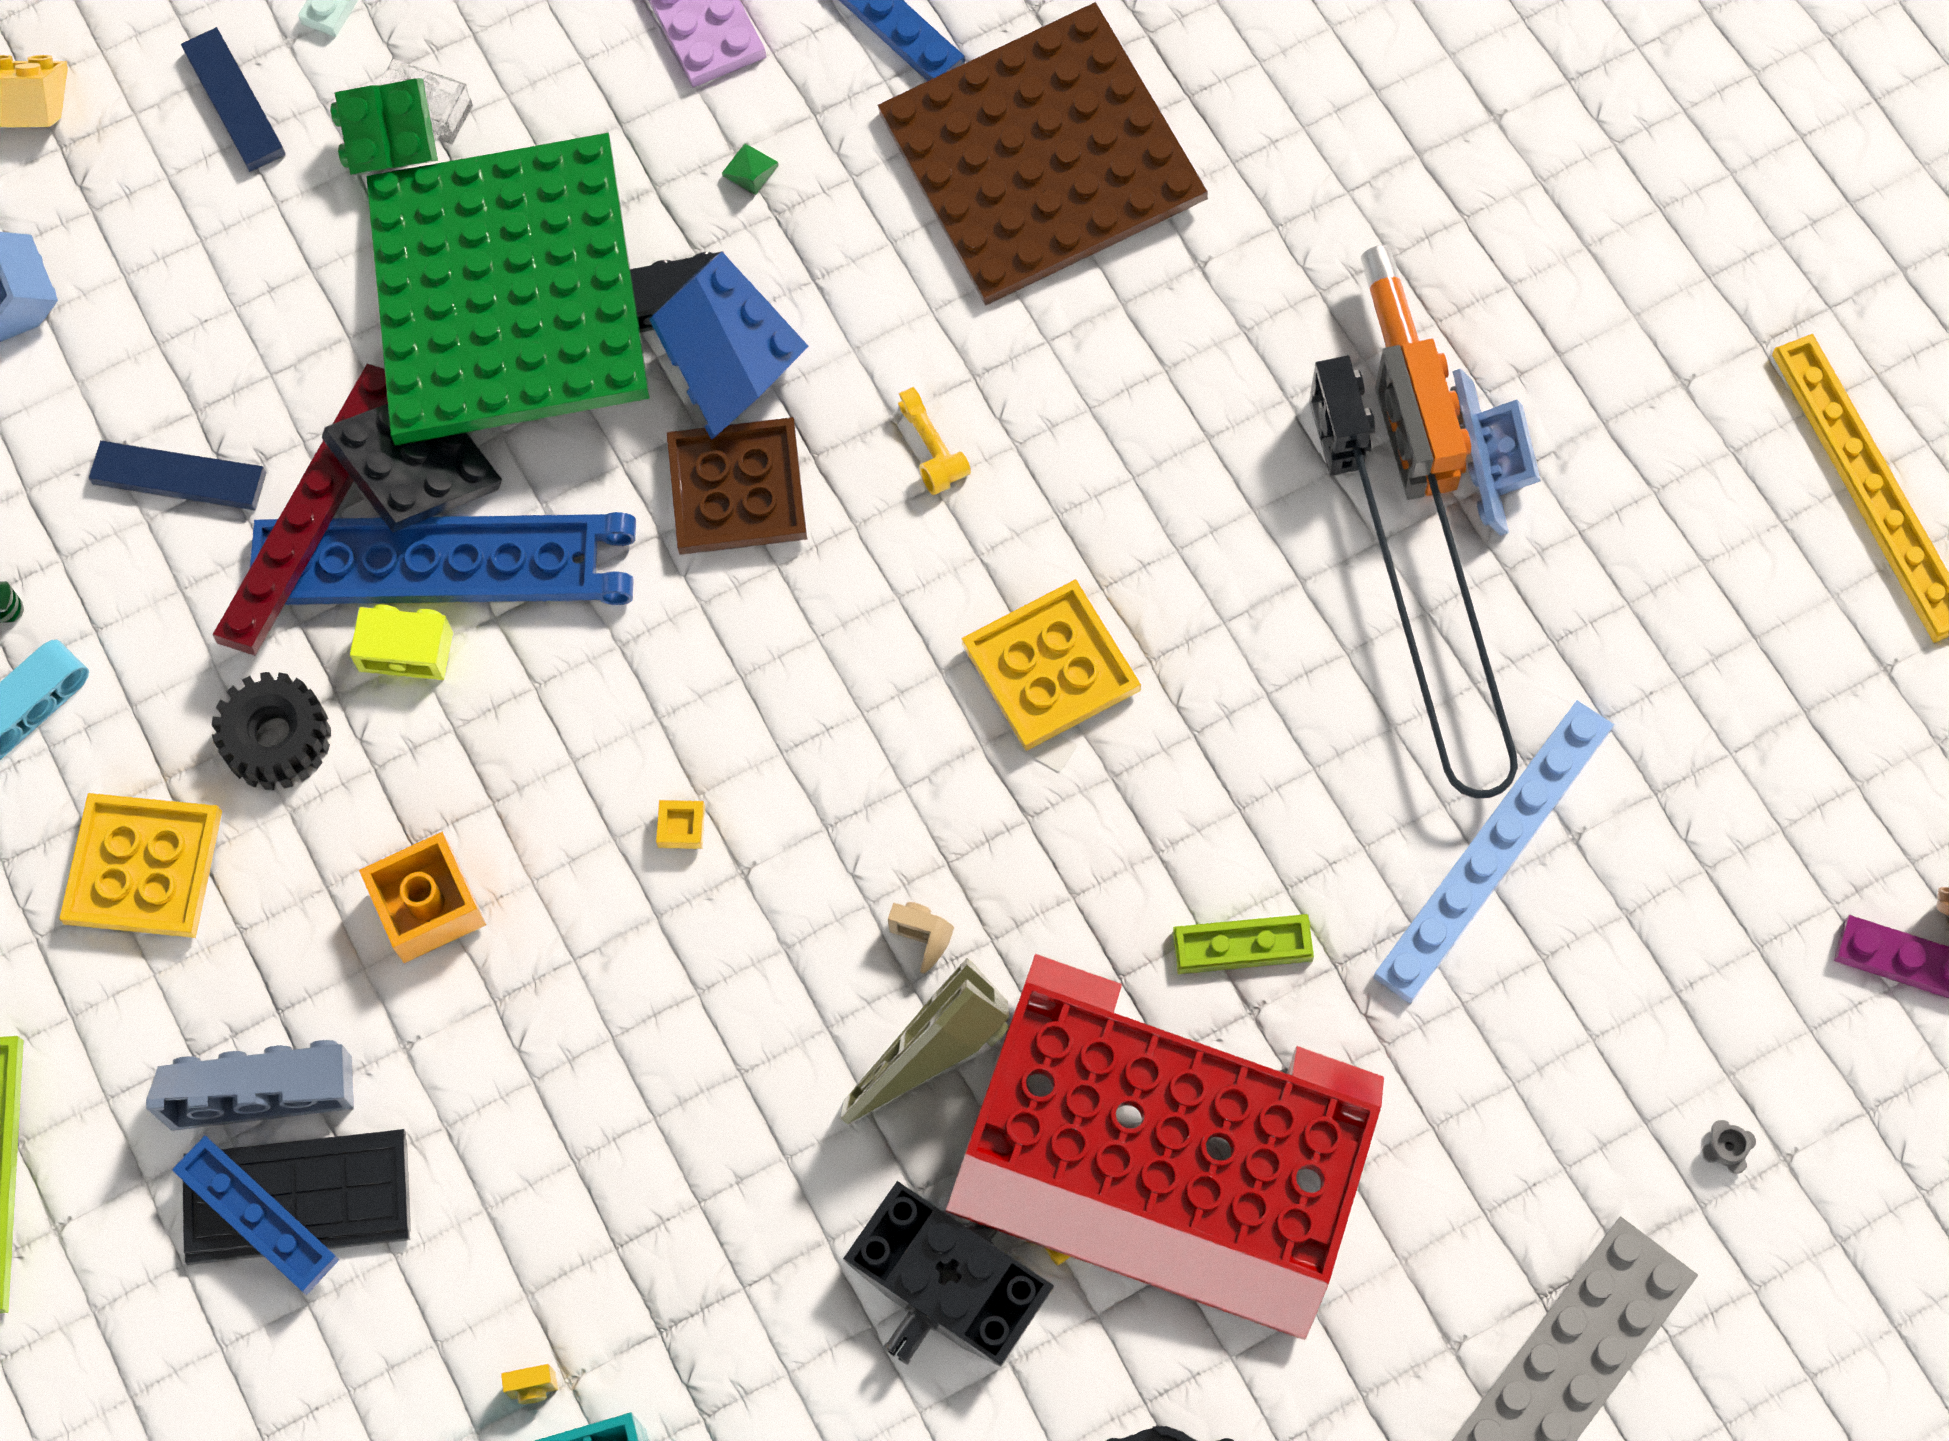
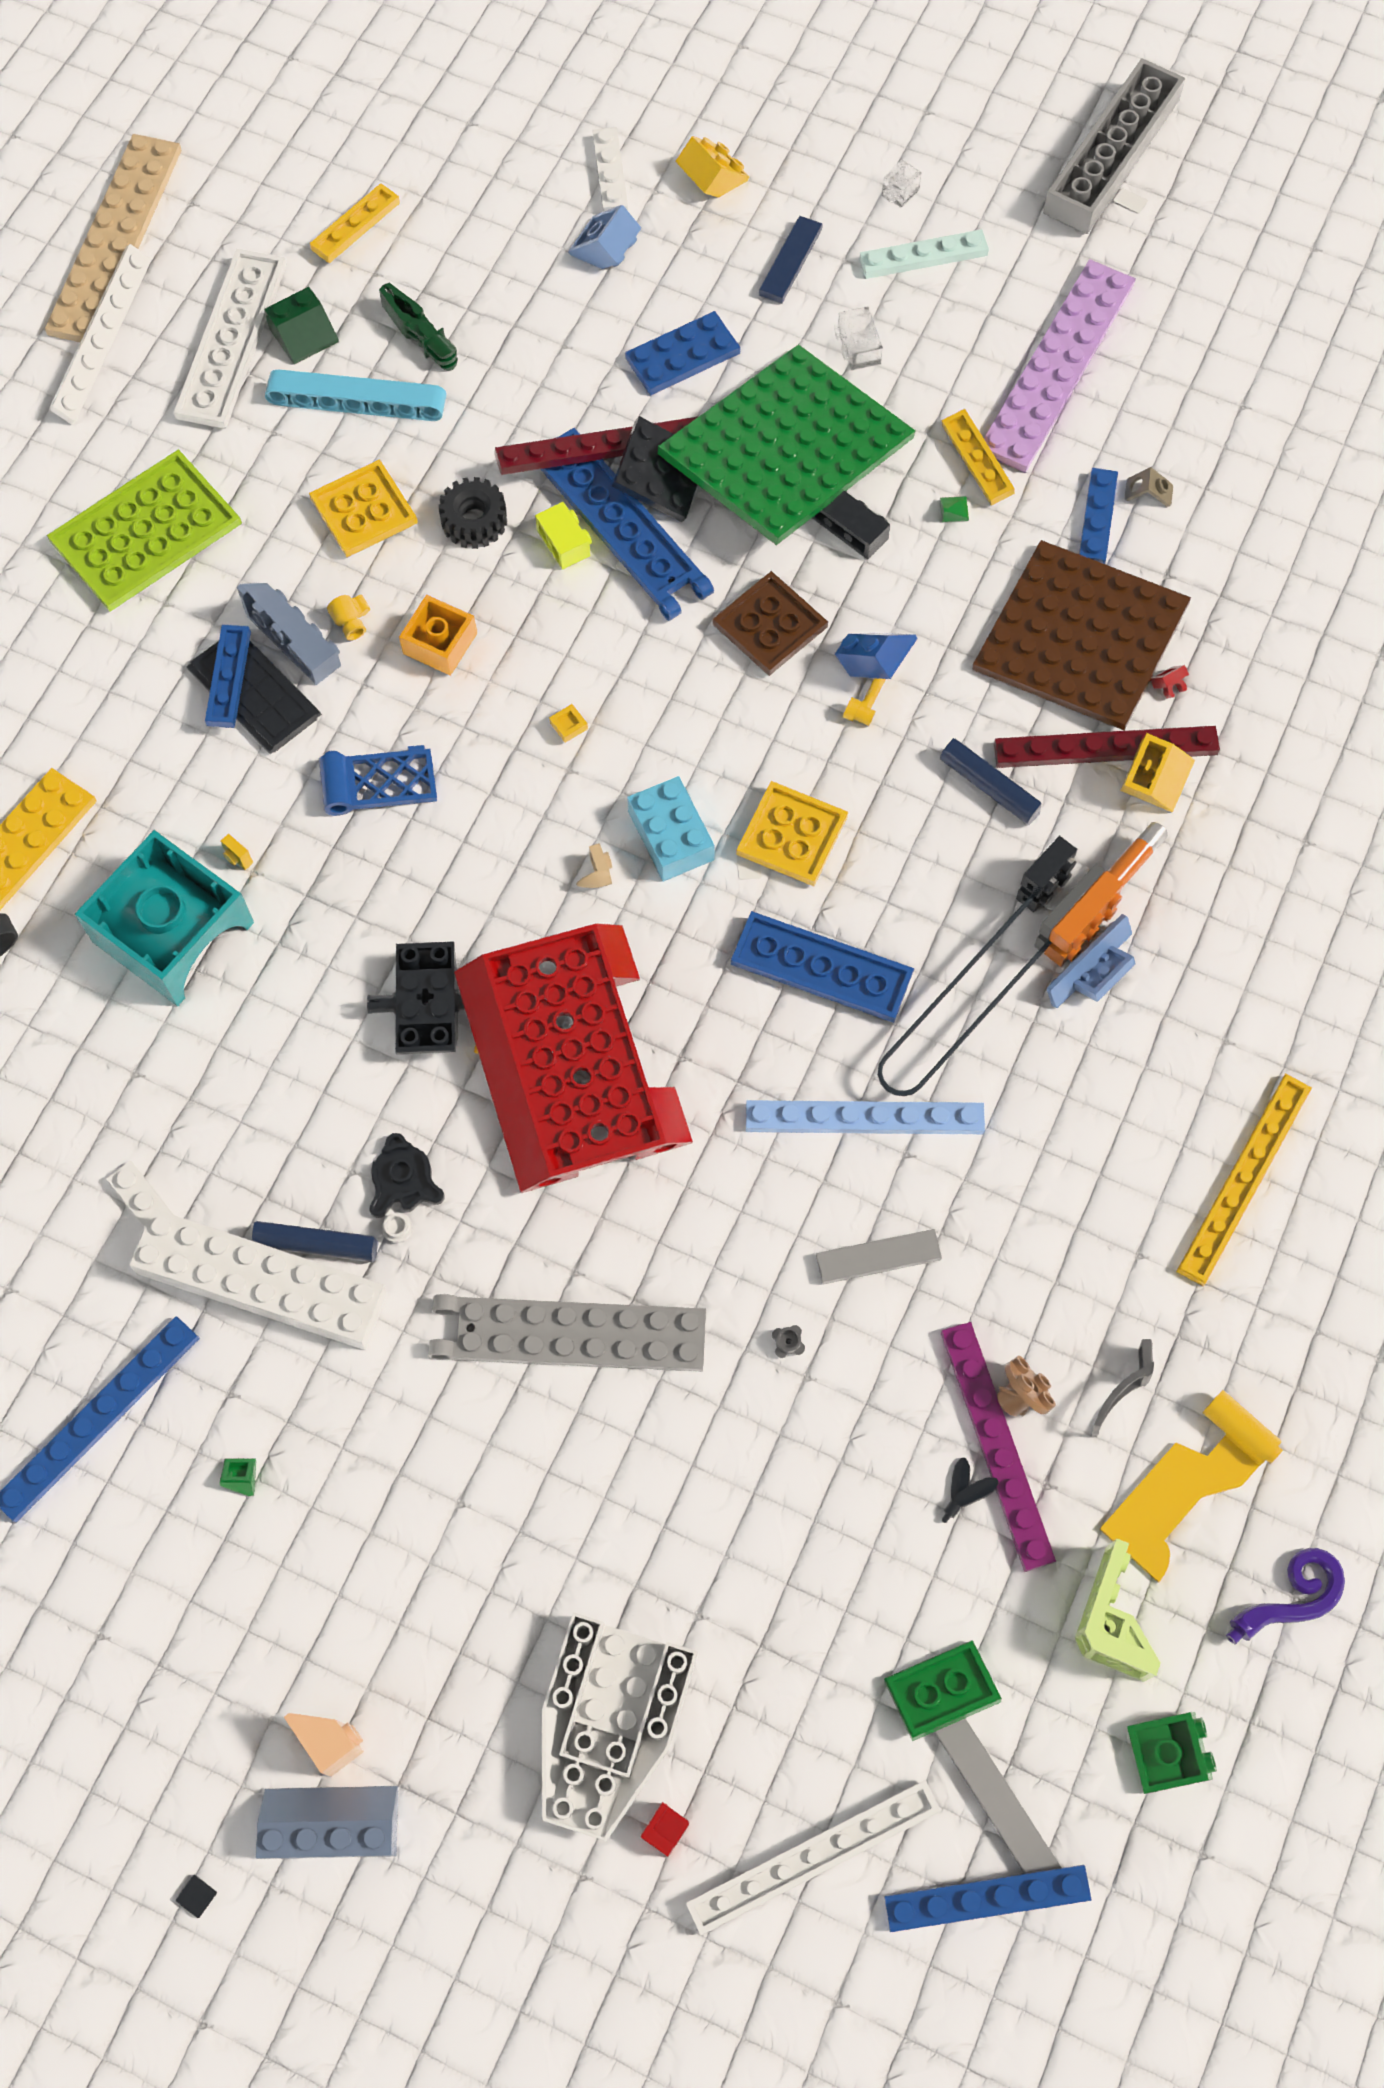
camera: 50 degrees right, 0 degrees up
(177, 475) = (572, 381): dark blue tile -> none
(254, 317) = (682, 353): none -> blue plate
(283, 996) = (346, 612): none -> yellow piece
(384, 127) = (827, 329): green plate -> none
(539, 1176) = (341, 790): none -> blue piece
(705, 91) = (978, 457): none -> yellow plate
(725, 341) = (837, 557): blue wedge -> none
(887, 393) = (874, 653): none -> blue slope
(934, 802) = (671, 828): none -> medium azure brick
(944, 1032) = (541, 904): olive wedge -> none
(1161, 390) = (991, 781): none -> dark blue brick
(1179, 99) = (1169, 678): none -> red tile
(1208, 236) = (1099, 746): none -> dark red plate
(1243, 944) = (713, 1027): lime tile -> none
(1258, 757) = (822, 966): none -> blue plate
(1294, 204) = (1158, 773): none -> yellow slope
(1689, 963) = (878, 1256): none -> light grey tile

